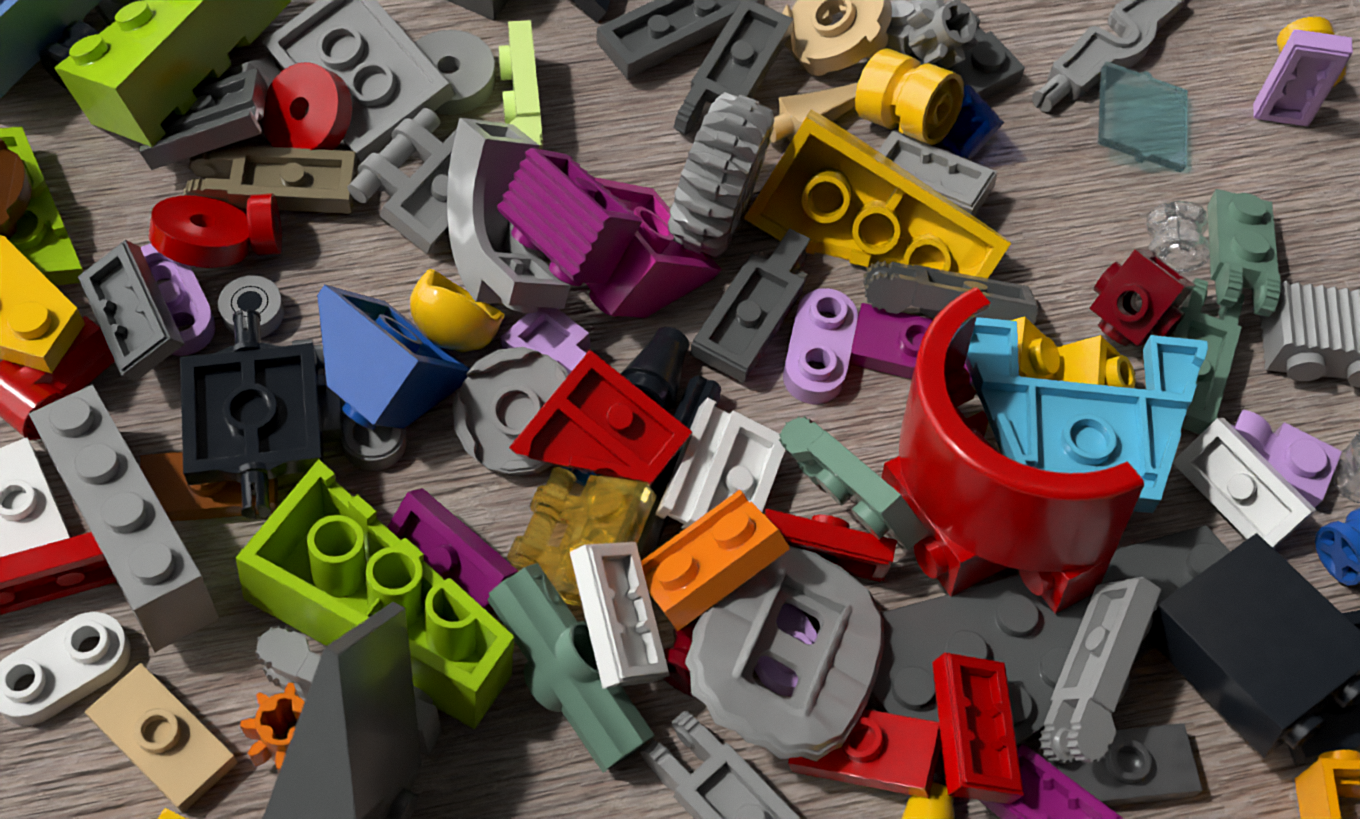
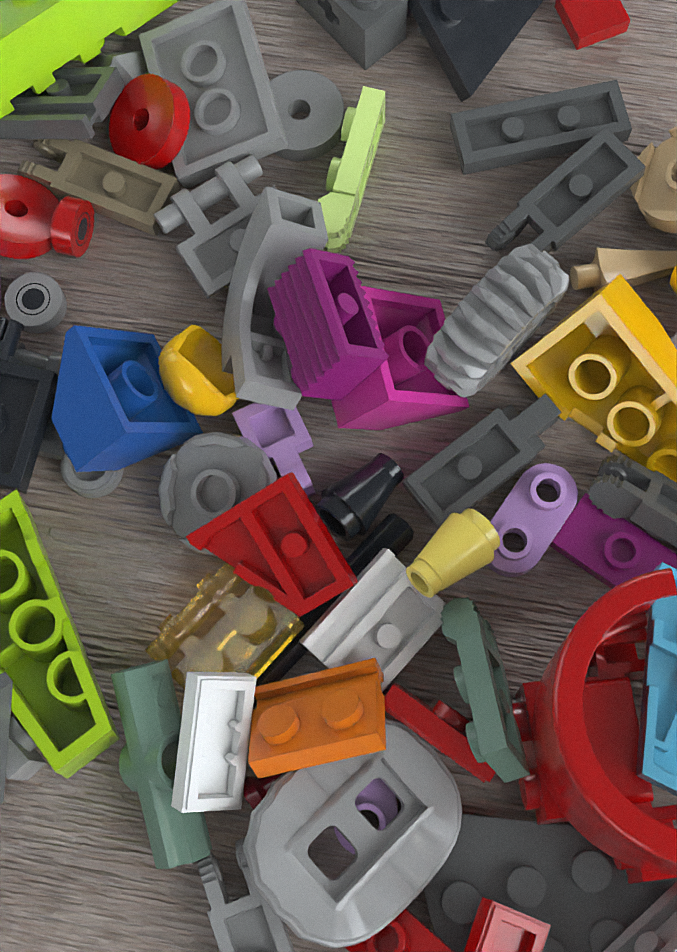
camera: 35 degrees right, 15 degrees up
(450, 546) = (103, 610): magenta plate -> none
(770, 379) = (455, 551): none -> light yellow cone

